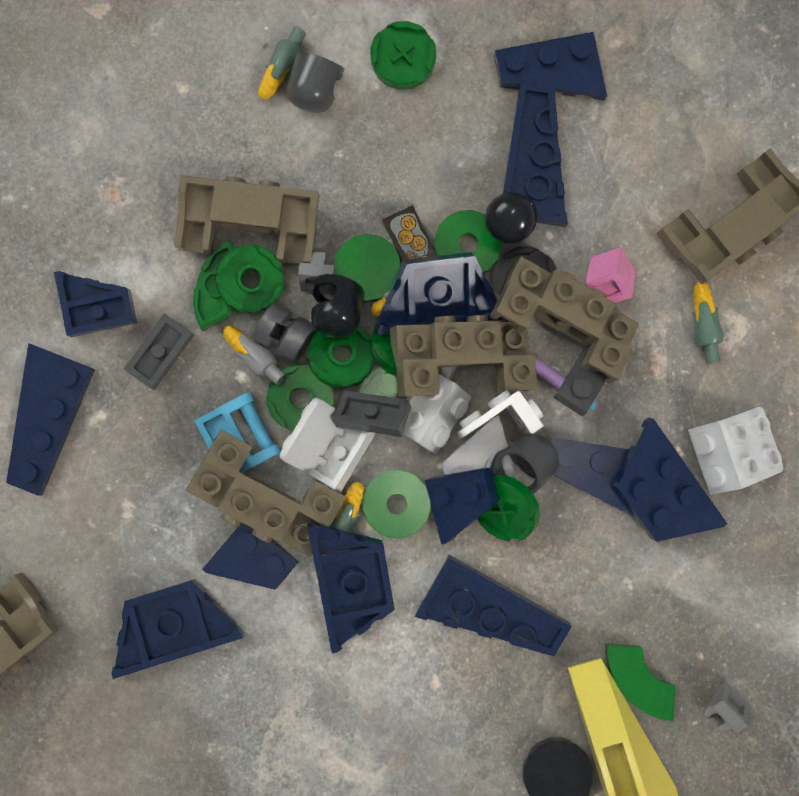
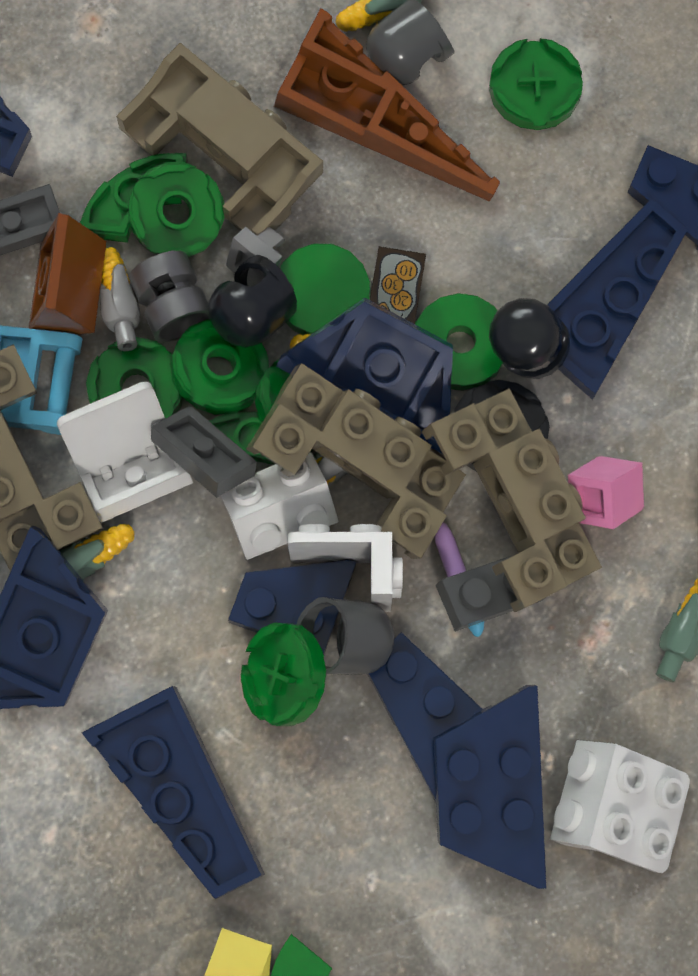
camera: 30 degrees right, 10 degrees down
(217, 365) = (68, 278): none -> dark orange slope
(301, 137) = (352, 97): none -> dark orange wedge
(393, 524) = (153, 556): green tile -> none
(460, 500) = (235, 627): dark blue wing -> none

